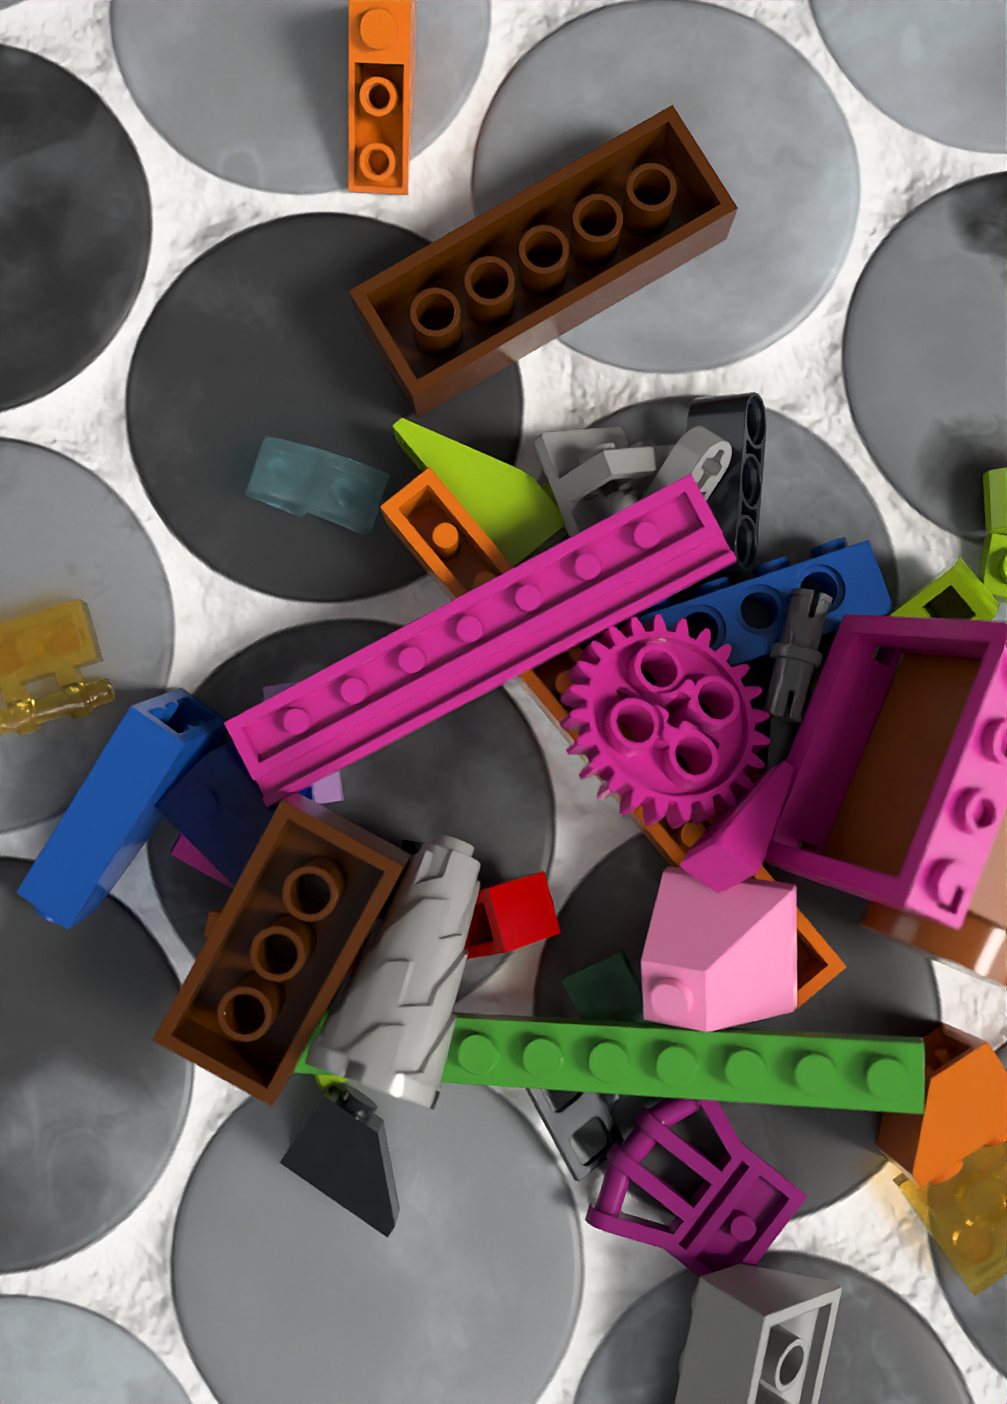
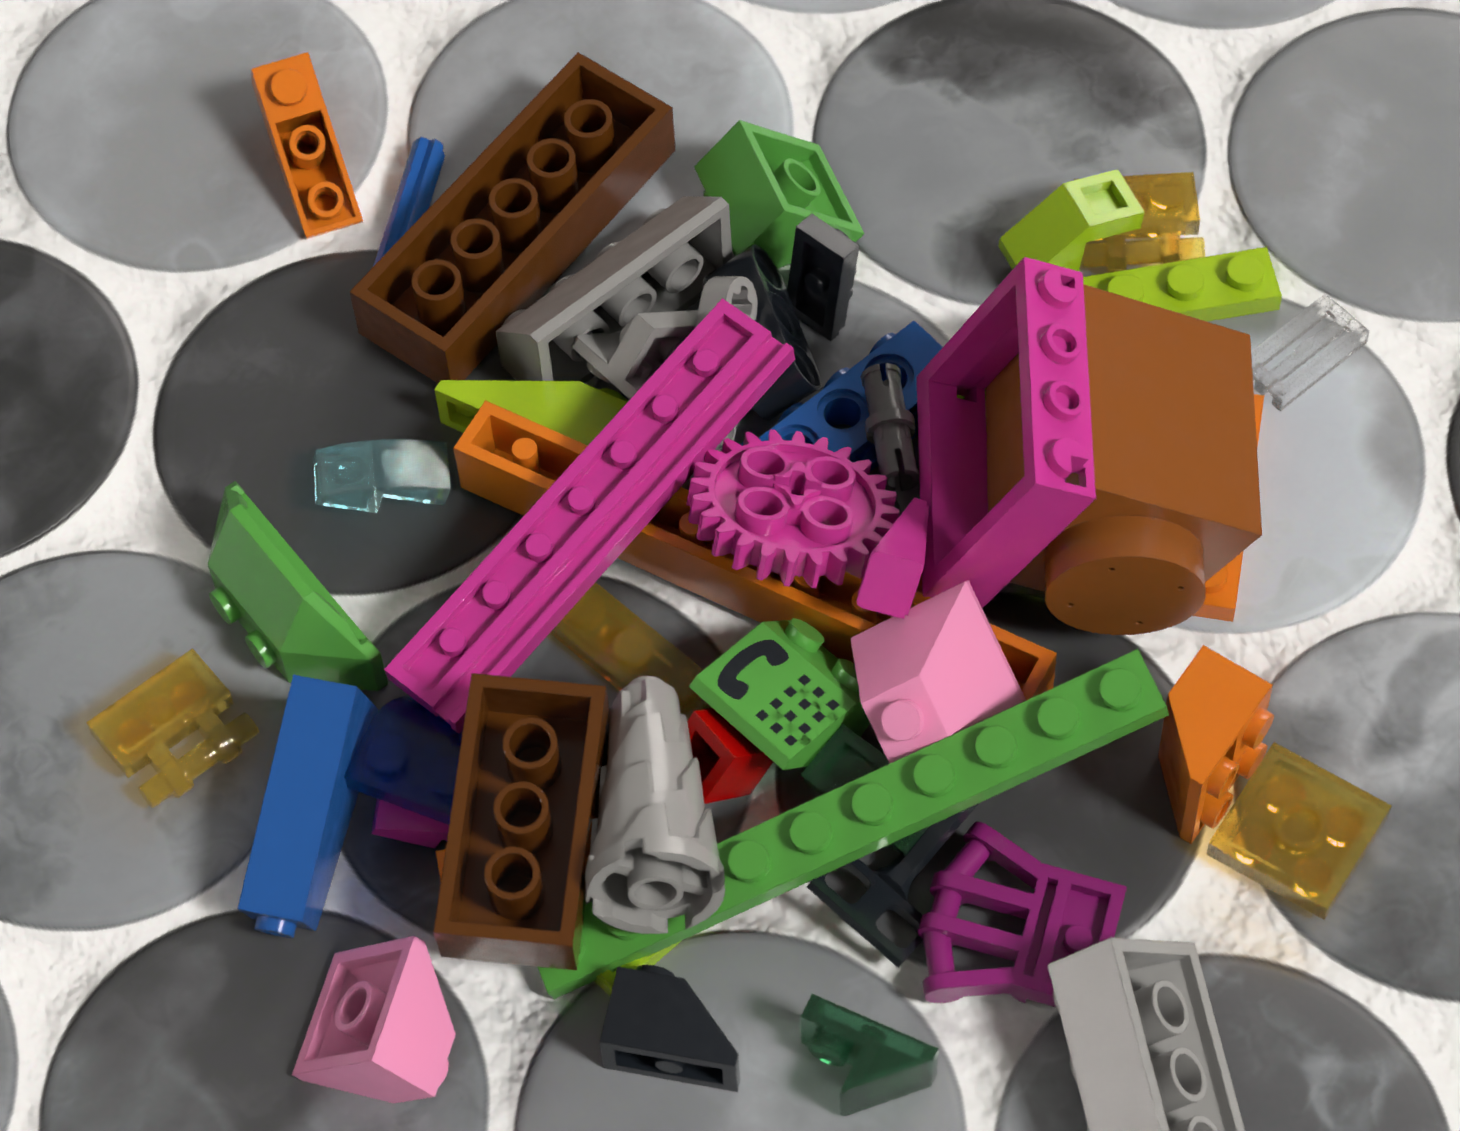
camera: 20 degrees left, 25 degrees down
(100, 1048) = (379, 1025): none -> bright pink slope
(175, 577) = (283, 603): none -> bright green wedge
(458, 193) = (413, 191): none -> blue axle
(478, 781) = (626, 647): none -> clear yellow plate
(522, 1269) = (882, 1059): none -> clear green slope
(581, 894) = (784, 691): none -> bright green slope
(609, 384) = (644, 273): none -> light grey slope
(798, 335) = (772, 188): none -> bright green slope
(804, 452) = (822, 275): none -> black plate

